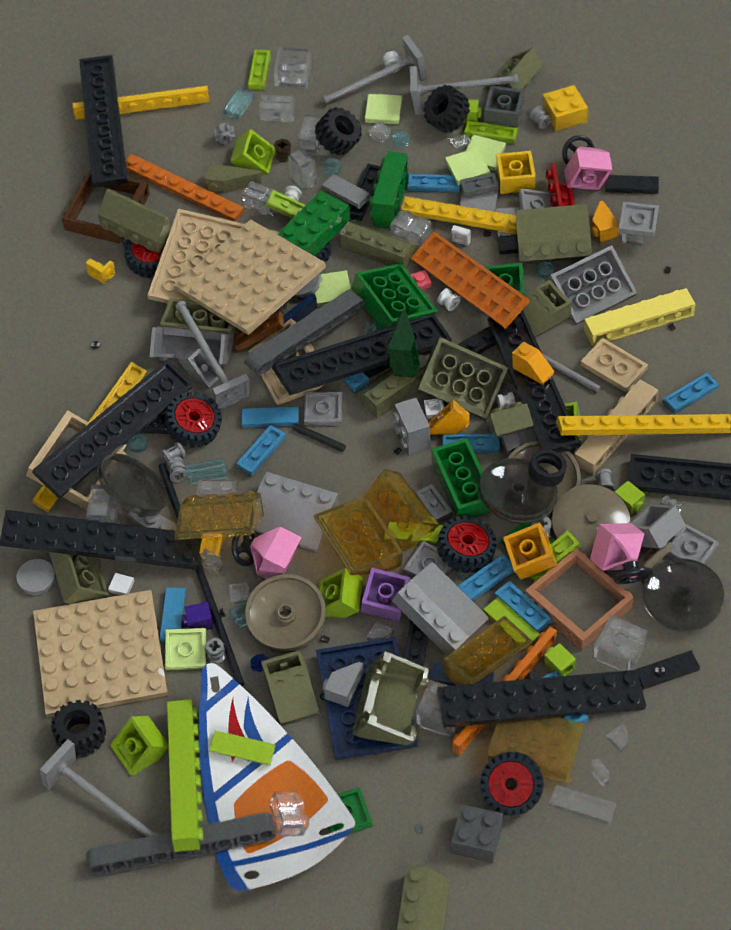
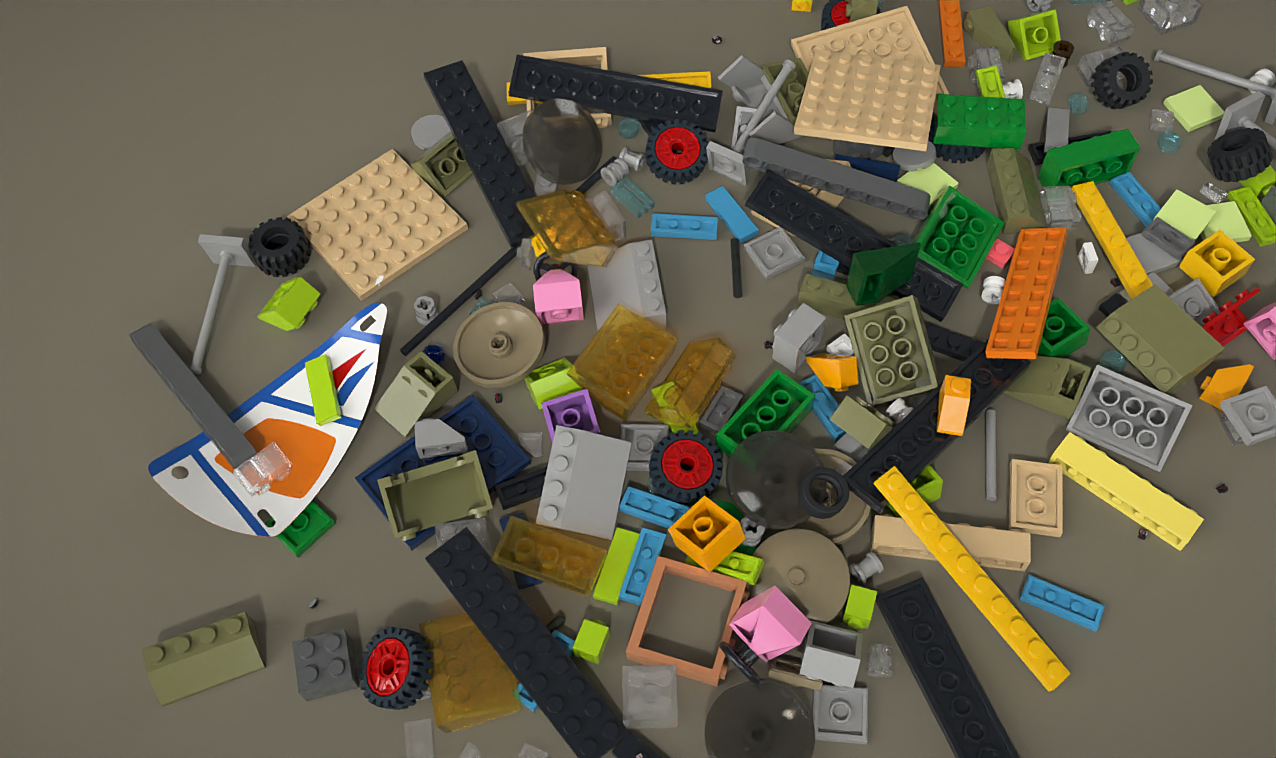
camera: 60 degrees right, 5 degrees up
(121, 584) = (461, 199): white tile -> none
(173, 610) = (451, 256): dark azure tile -> none
(183, 775) = (257, 356): lime brick -> none
(185, 649) = (414, 282): yellowish green tile -> none
(198, 616) = (455, 276): dark purple brick -> none
(268, 327) = (820, 147): dark orange plate -> none
(521, 668) = (559, 605): orange plate -> none

